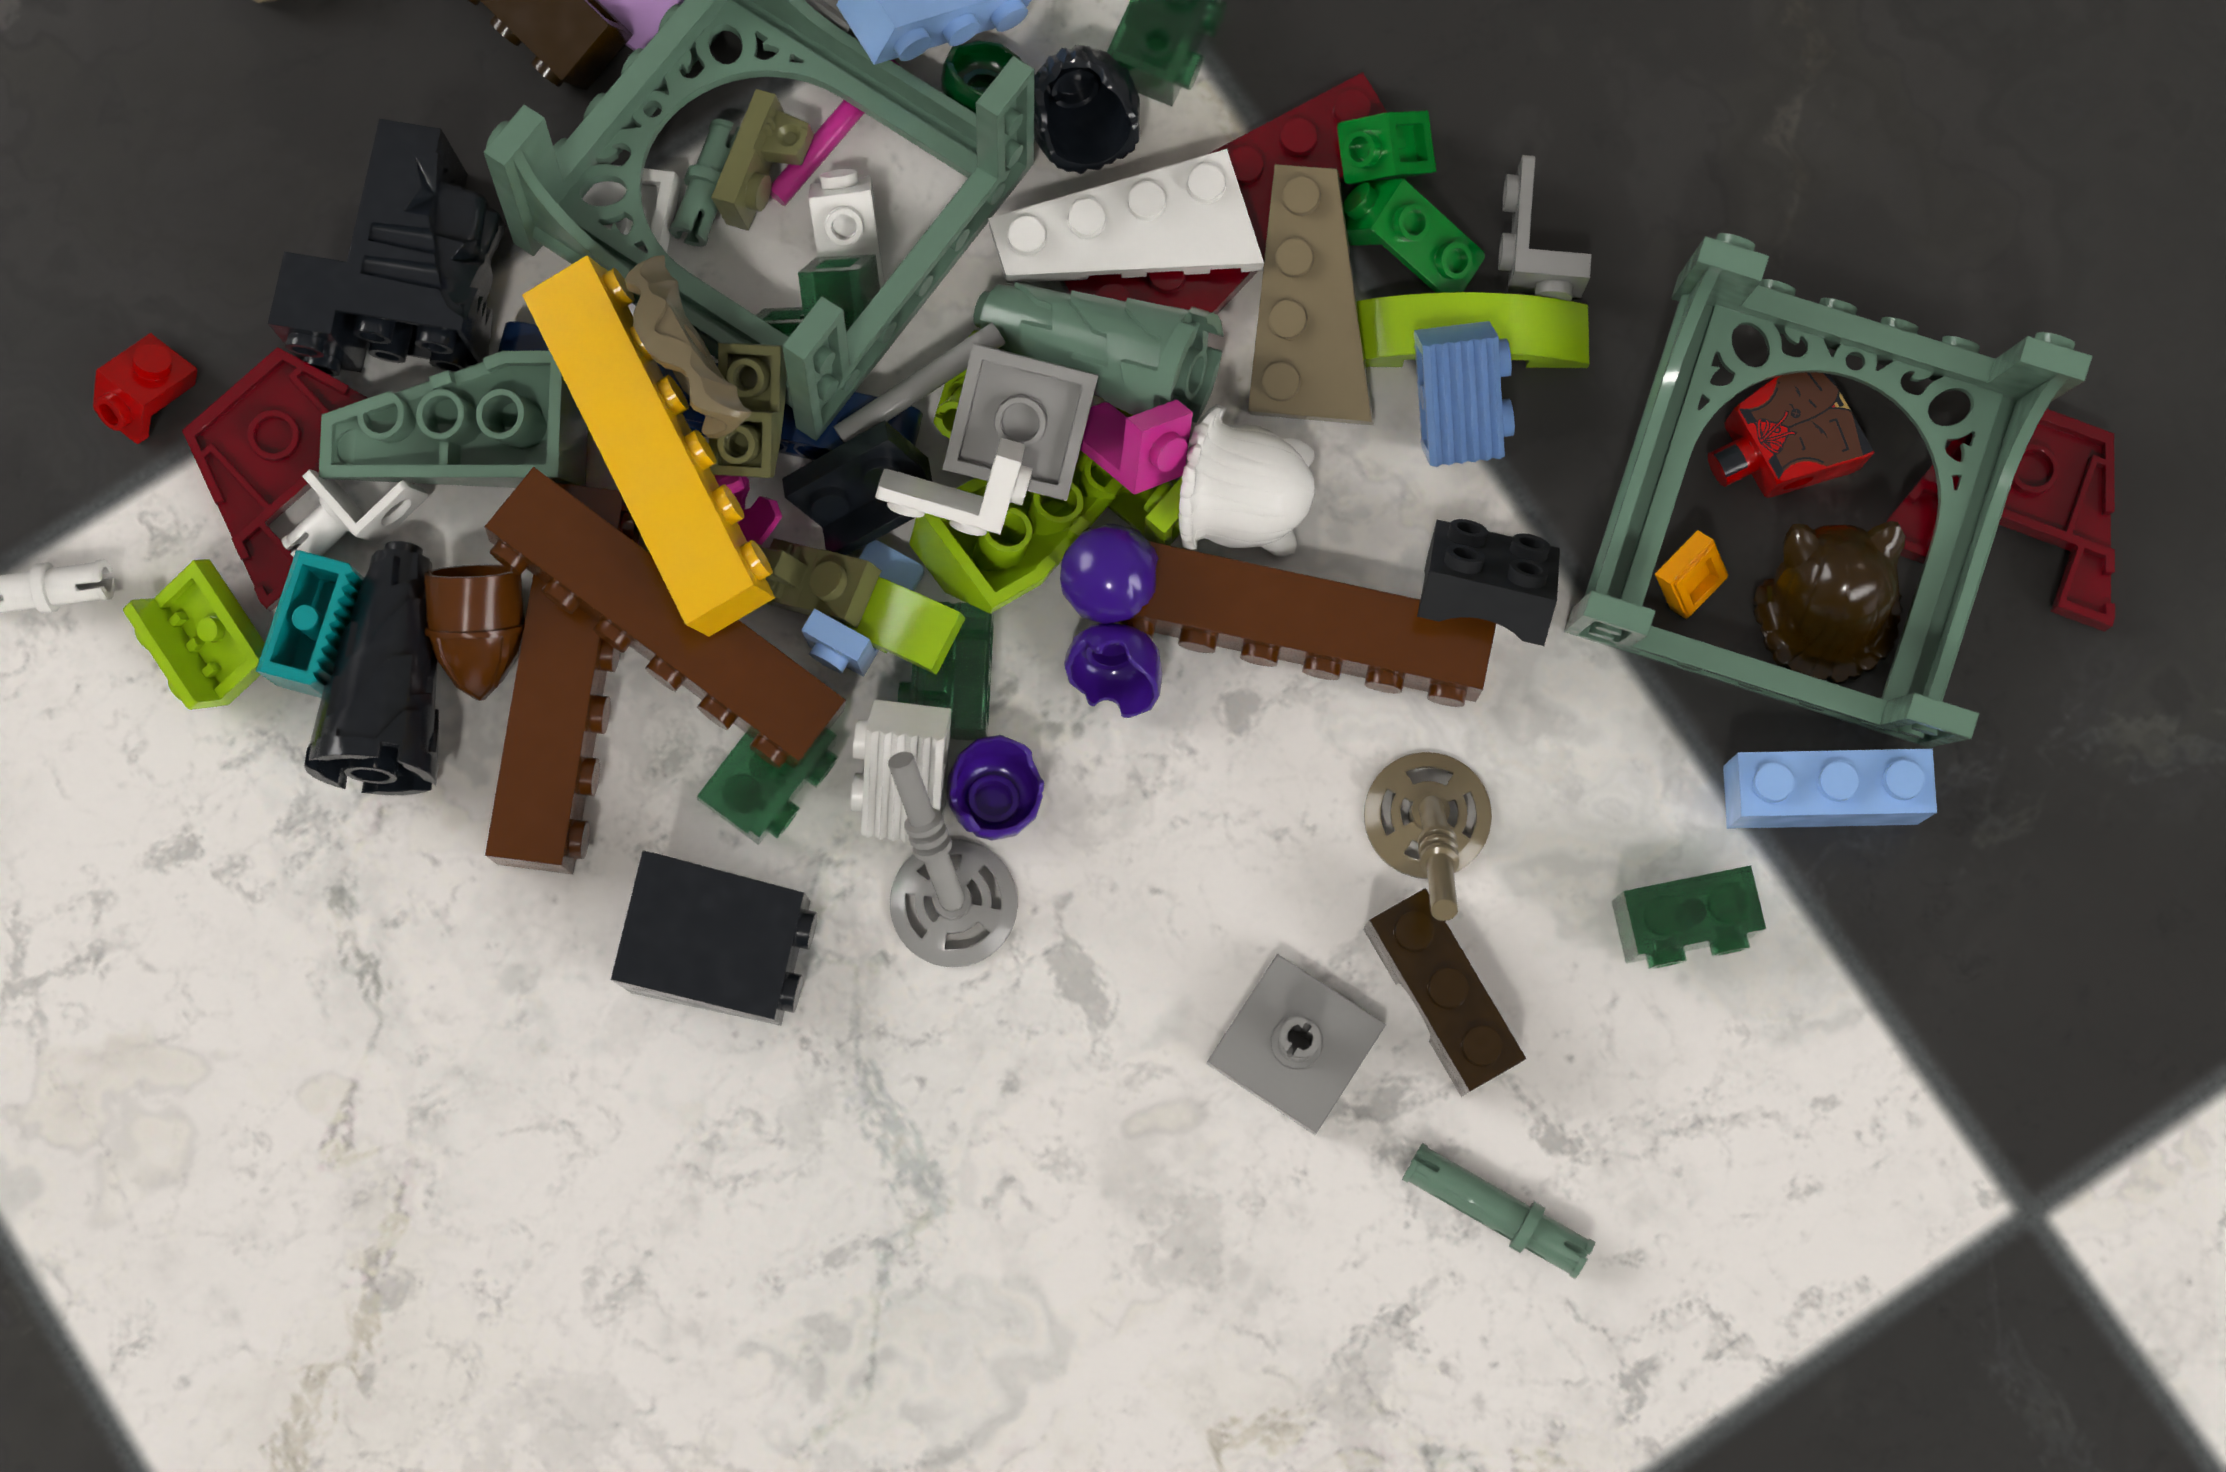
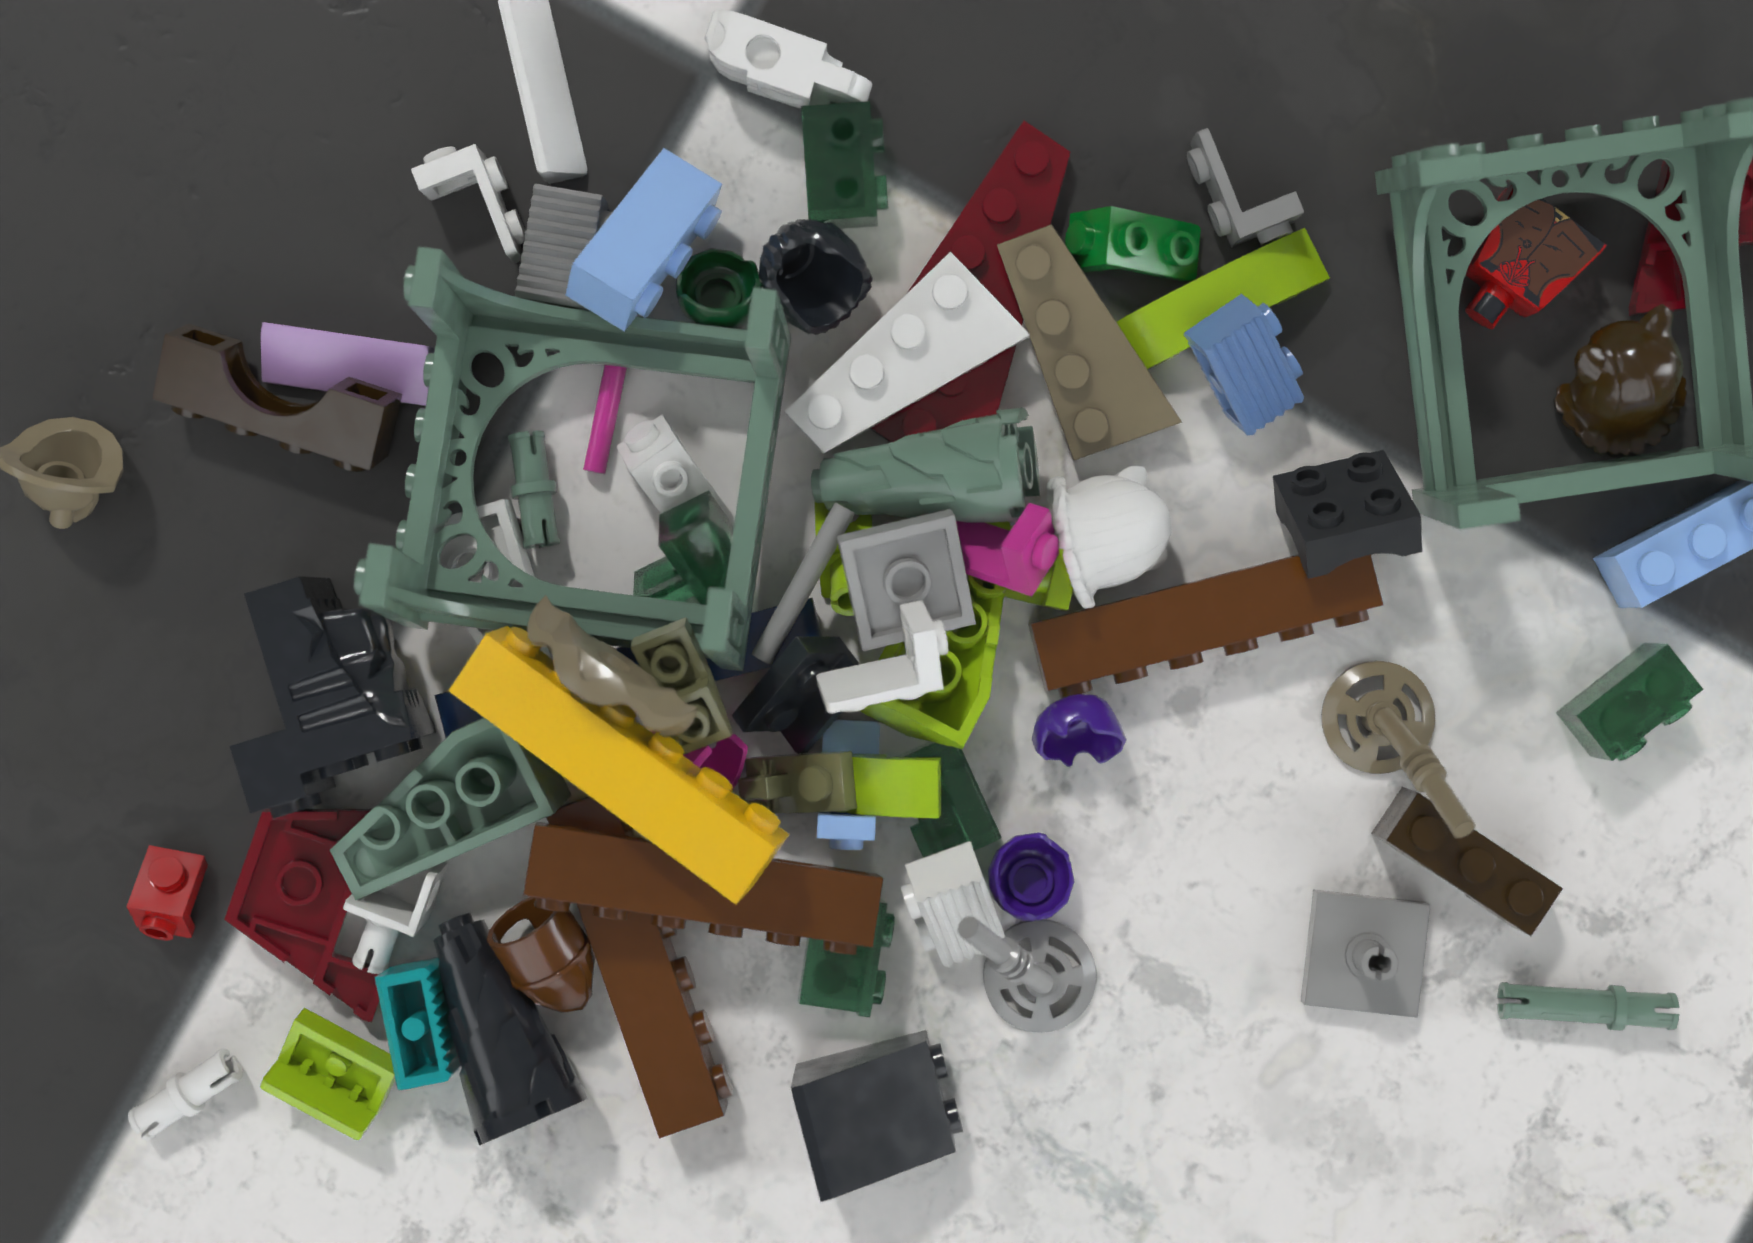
camera: 30 degrees left, 10 degrees up
(763, 138) = (561, 429): olive hinge -> none
(1109, 573) = (1038, 663): dark purple hair -> none
(1386, 146) = (1079, 179): green bracket -> none
(1692, 574) = (1501, 418): light orange tile -> none

